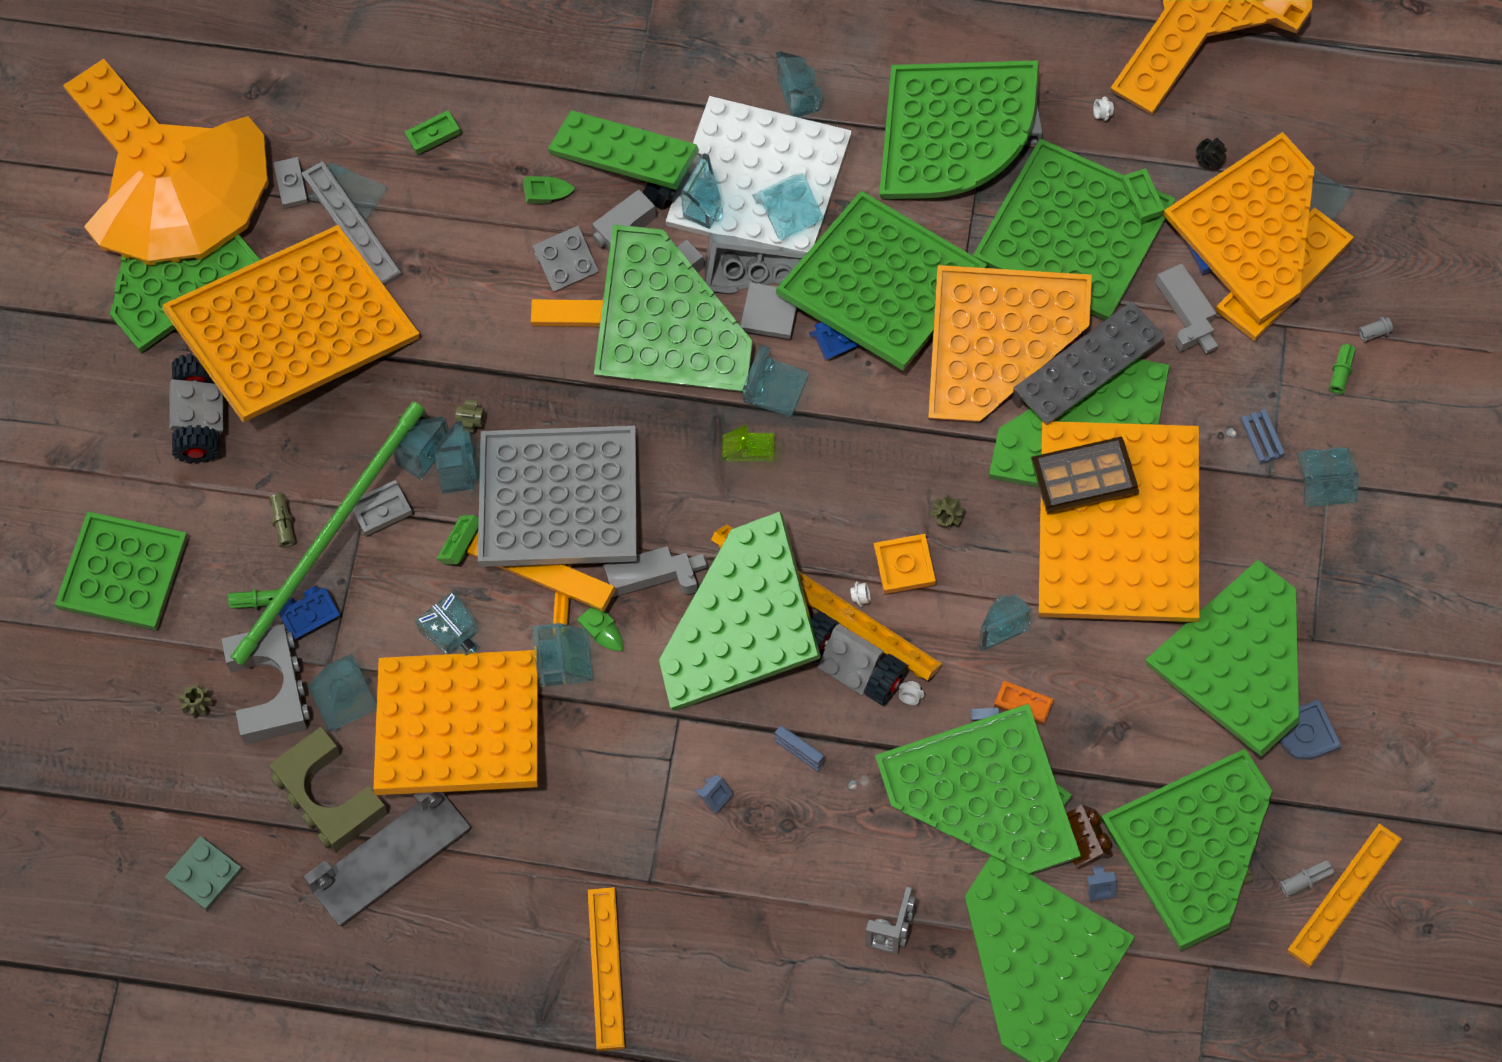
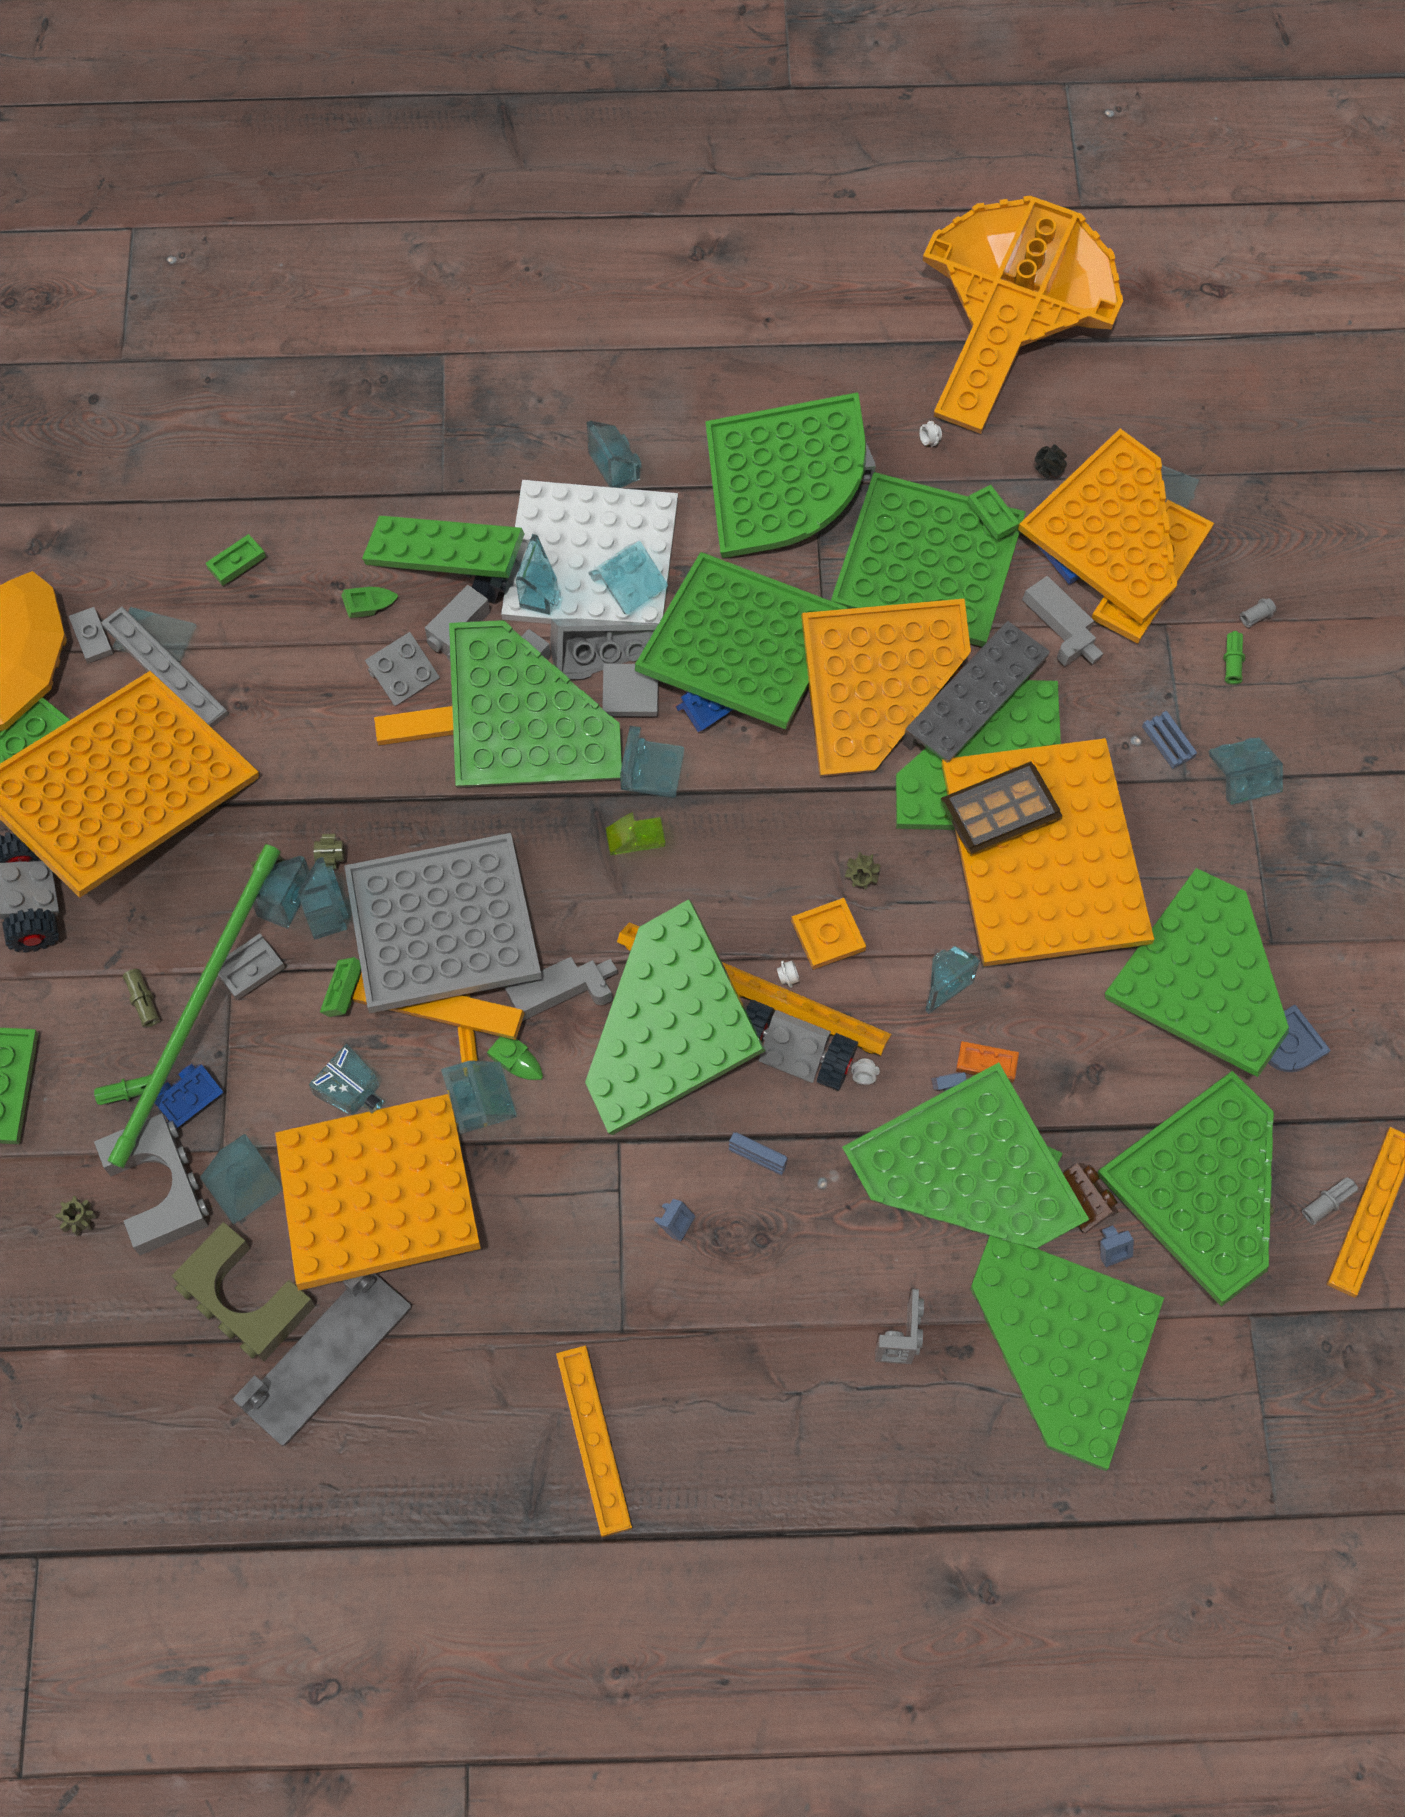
camera: 15 degrees left, 0 degrees up
(203, 873) = (116, 1413): sand green plate -> none

